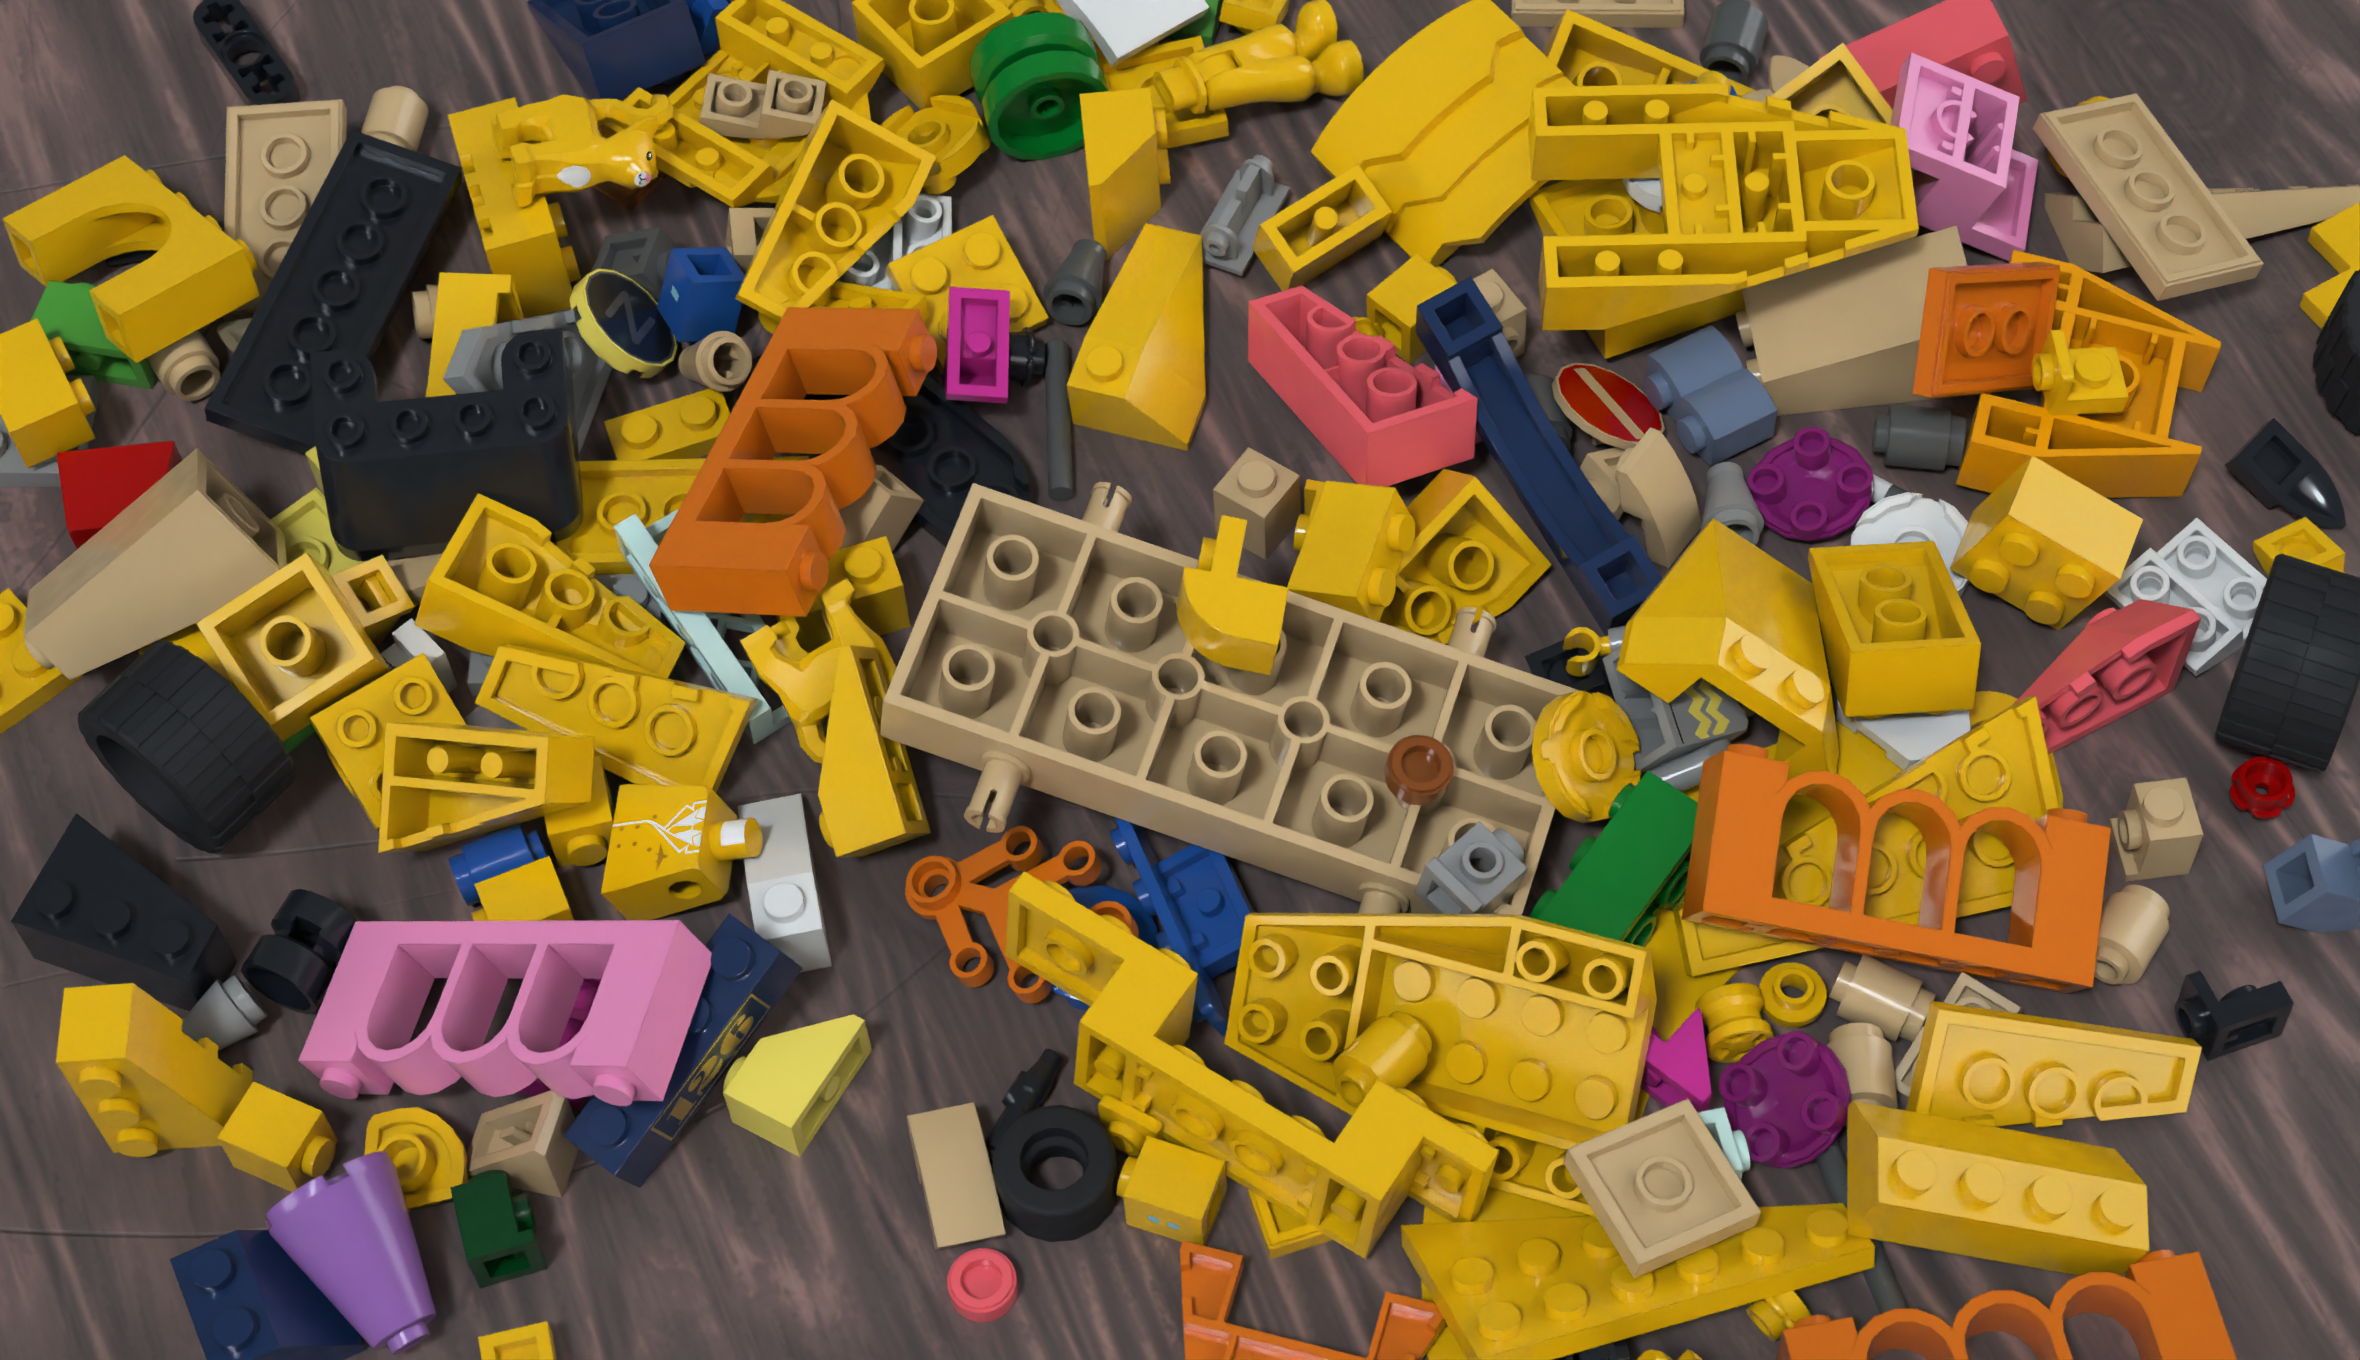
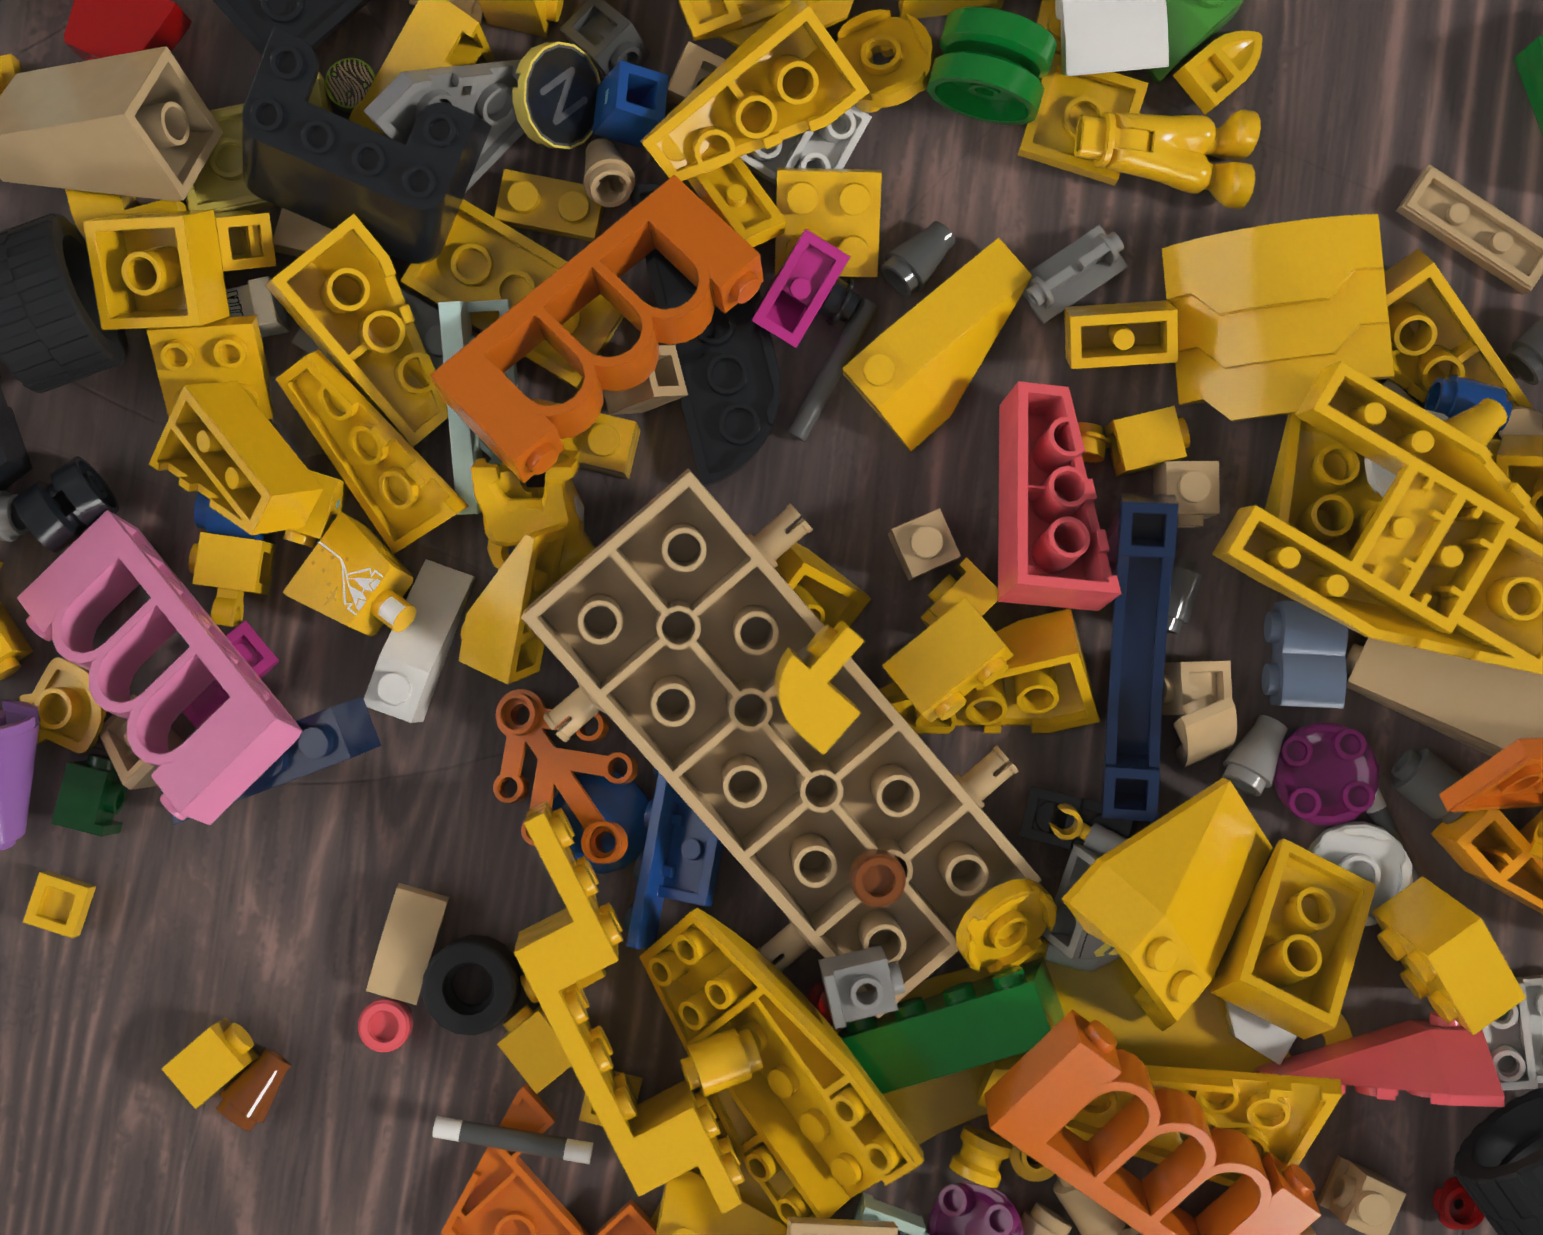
camera: 30 degrees right, 30 degrees up
(795, 1080) = (338, 808): light yellow slope -> none
(1025, 1094) = (483, 910): black piece -> none
(1123, 162) = (1011, 177): yellow slope -> none
(1207, 1292) = (512, 1140): none -> dark grey bar
(1605, 405) = (1226, 620): red piece -> none
(1679, 1066) = (925, 1180): dark pink slope -> none

